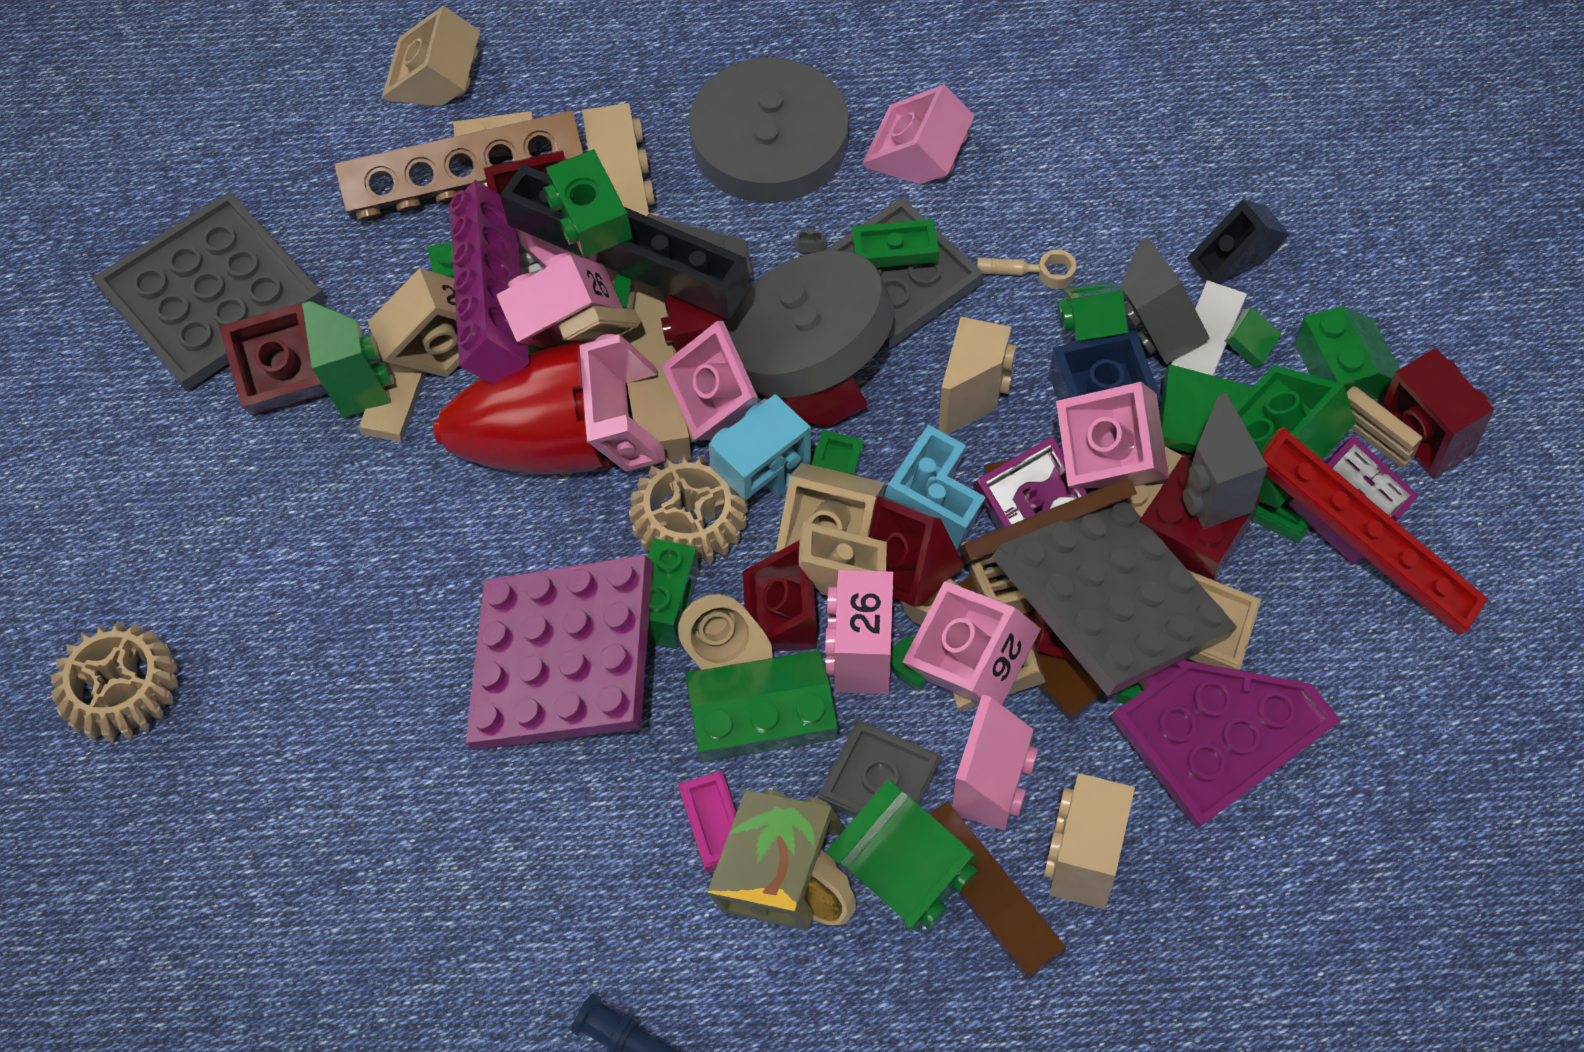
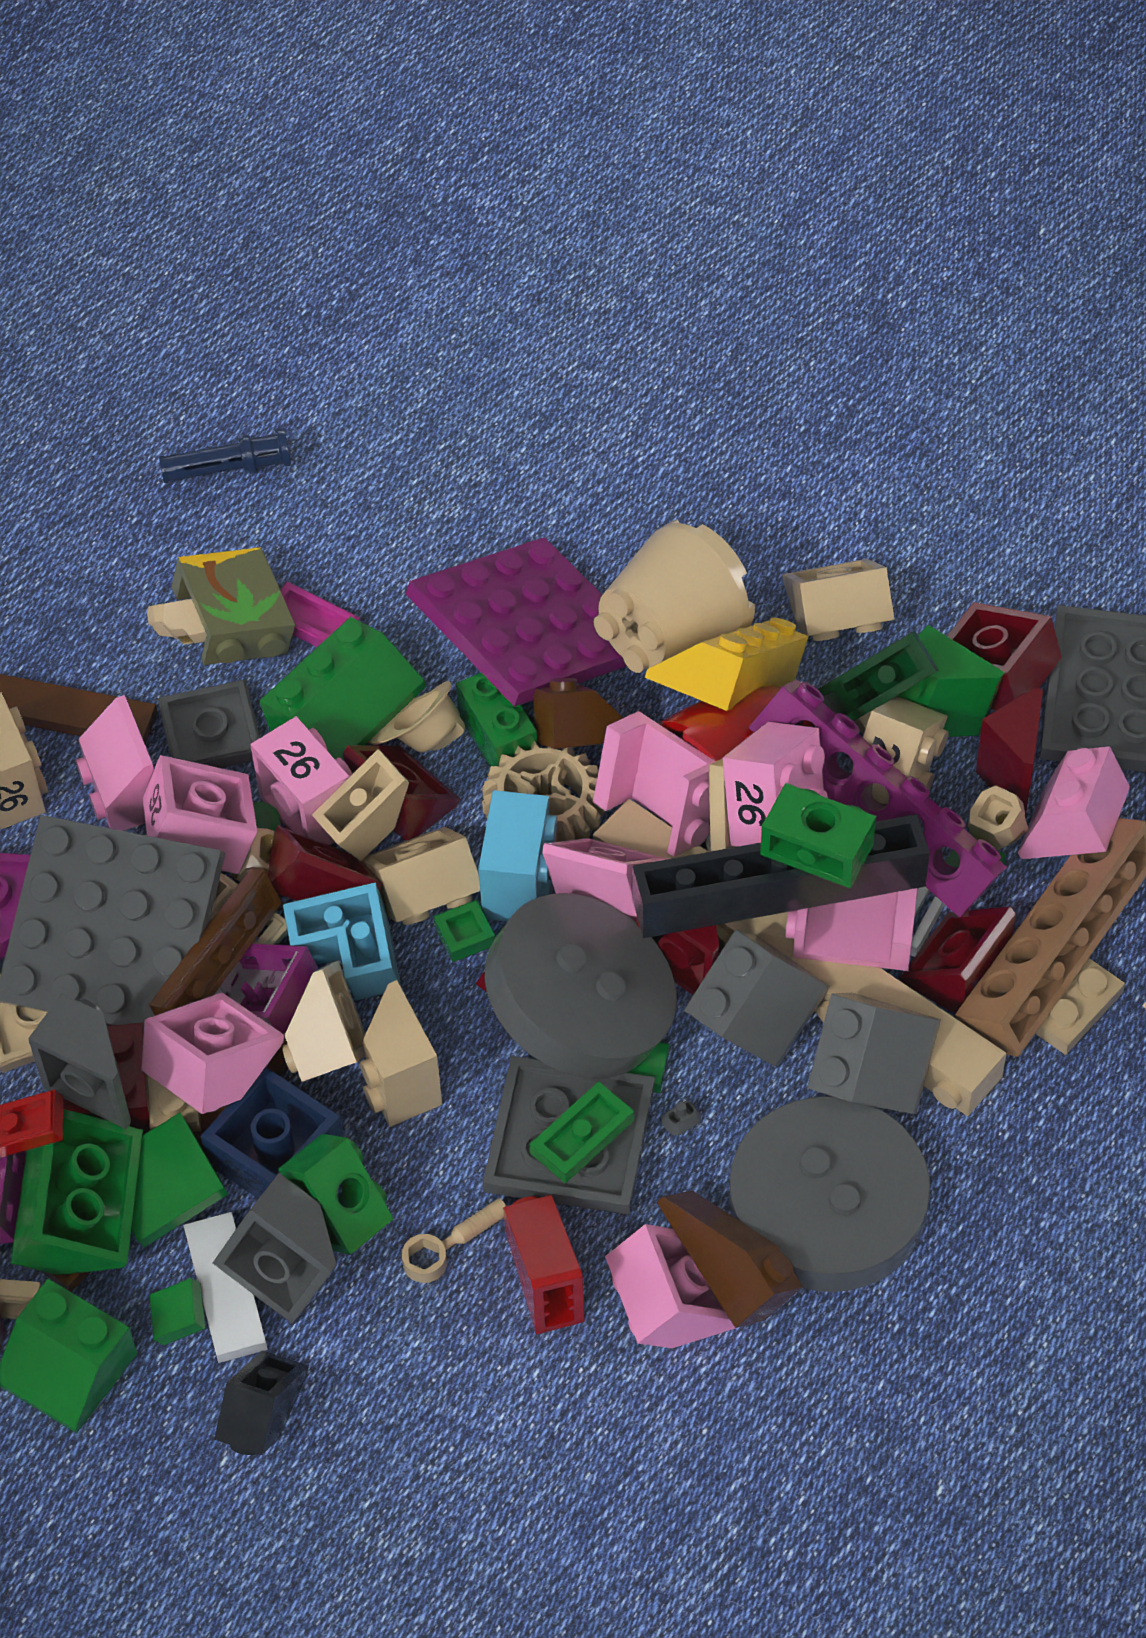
camera: 140 degrees right, 5 degrees down
(119, 696) = (828, 399): tan gear -> none
(312, 512) = (840, 598): none -> tan slope
(344, 279) = (1009, 745): none -> dark red slope
(361, 222) = (1077, 806): none -> bright pink slope
(404, 374) = (879, 678): none -> dark green slope
(411, 248) = (997, 817): none -> tan rock
(454, 550) = (674, 596): none -> tan cone
(470, 463) = (735, 663): none -> yellow slope
(611, 532) = (571, 715): none -> reddish brown slope
(666, 165) = (873, 1053): none -> dark grey slope
(872, 114) = (737, 1262): none -> reddish brown slope
(905, 856) = (146, 679): green panel -> none
(990, 191) = (545, 1263): none -> red slope
(1015, 413) = (325, 1027): none -> tan slope

